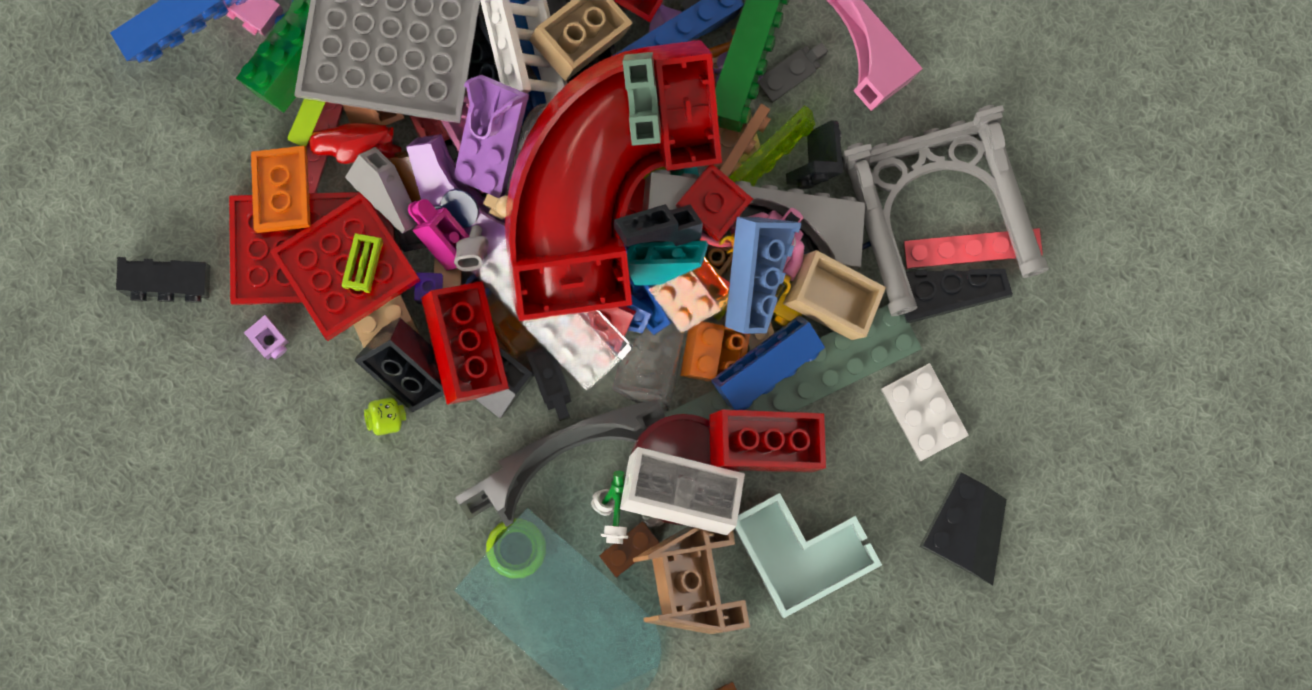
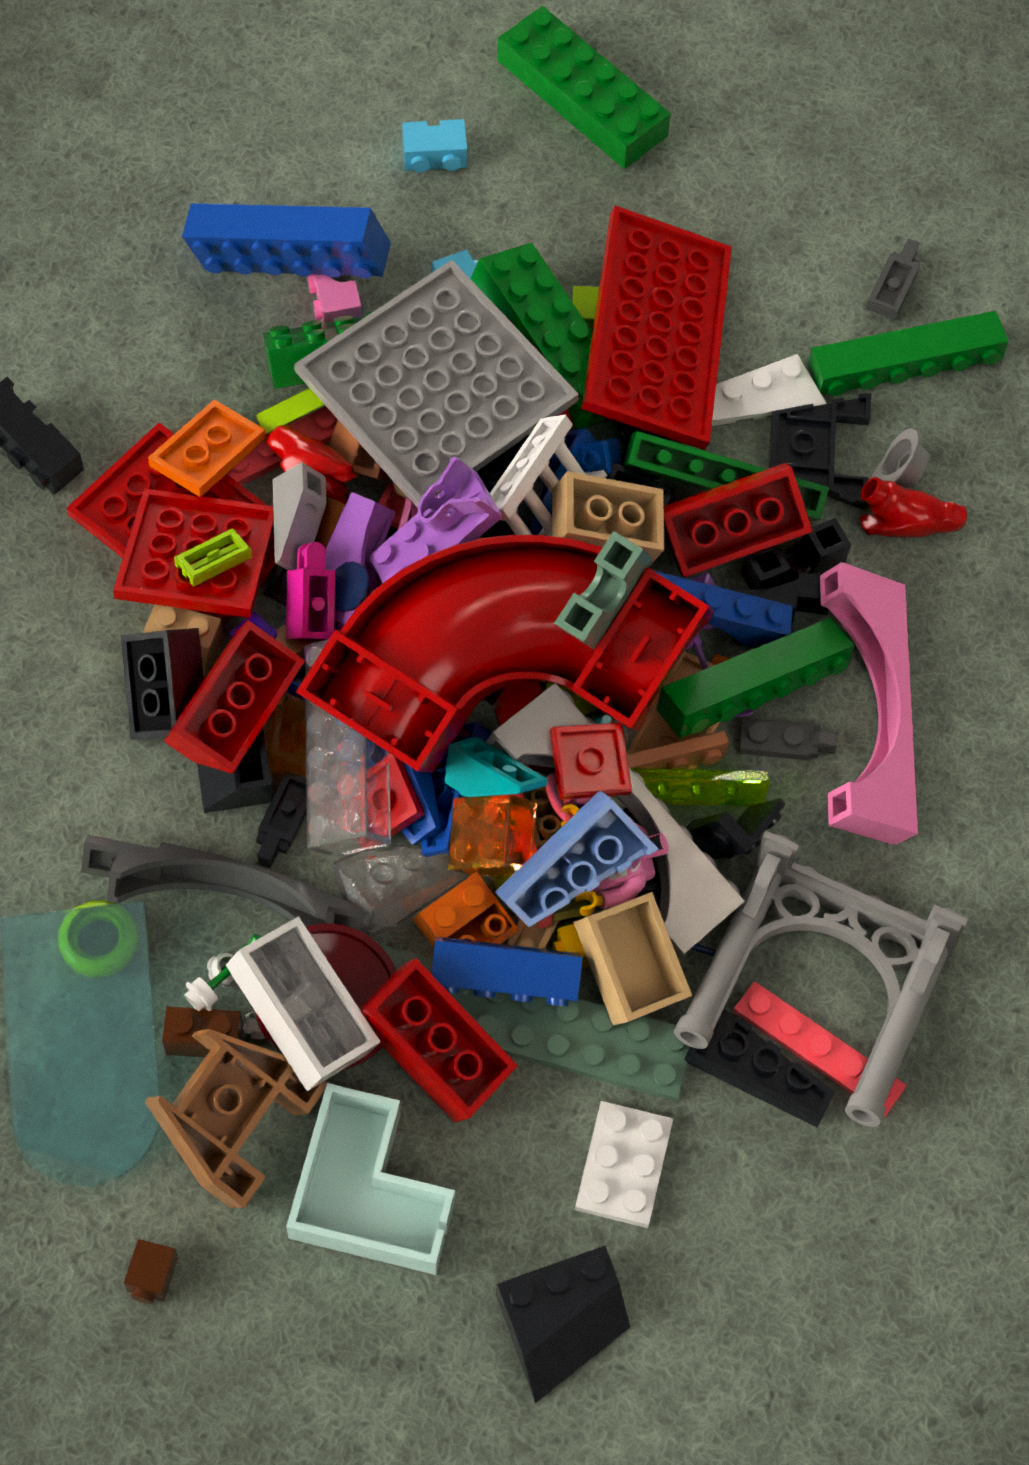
camera: 40 degrees right, 20 degrees down
(259, 331) = (67, 562): lavender brick -> none
(384, 416) = (100, 715): lime head -> none
(471, 250) = (318, 624): light grey piece -> none
(660, 224) = (514, 717): black slope -> none

